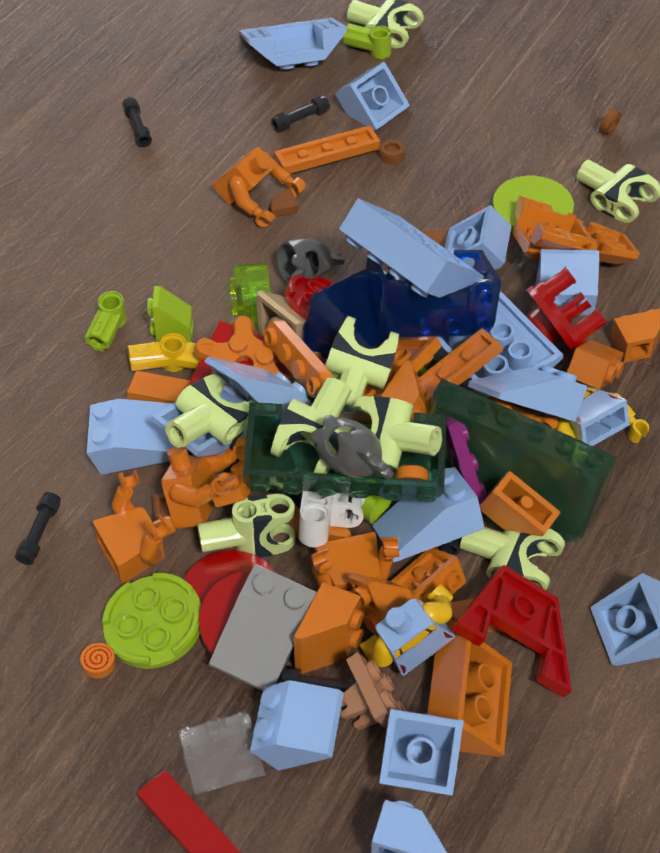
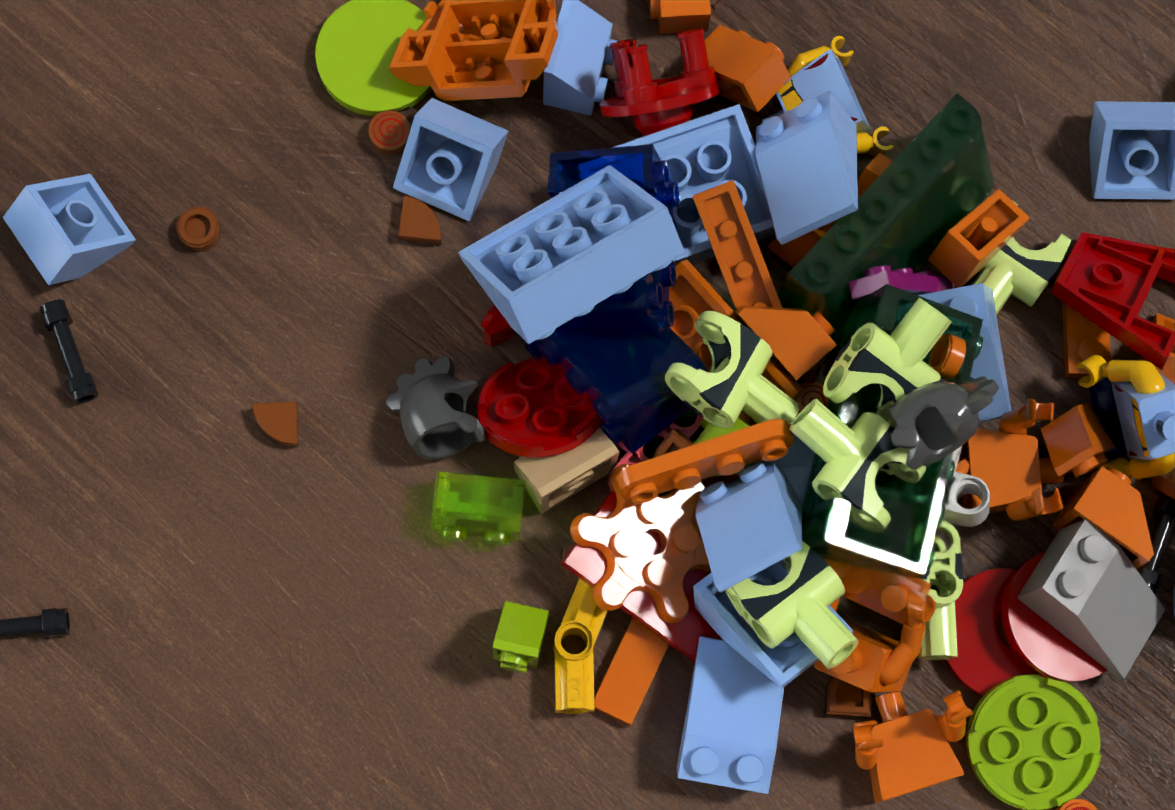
camera: 85 degrees left, 25 degrees up
(107, 321) = (493, 738): lime piece -> none
(245, 175) = (226, 465): orange torso -> none
(327, 149) = (176, 328): orange plate -> none
(429, 571) = (1034, 377): orange bracket -> none

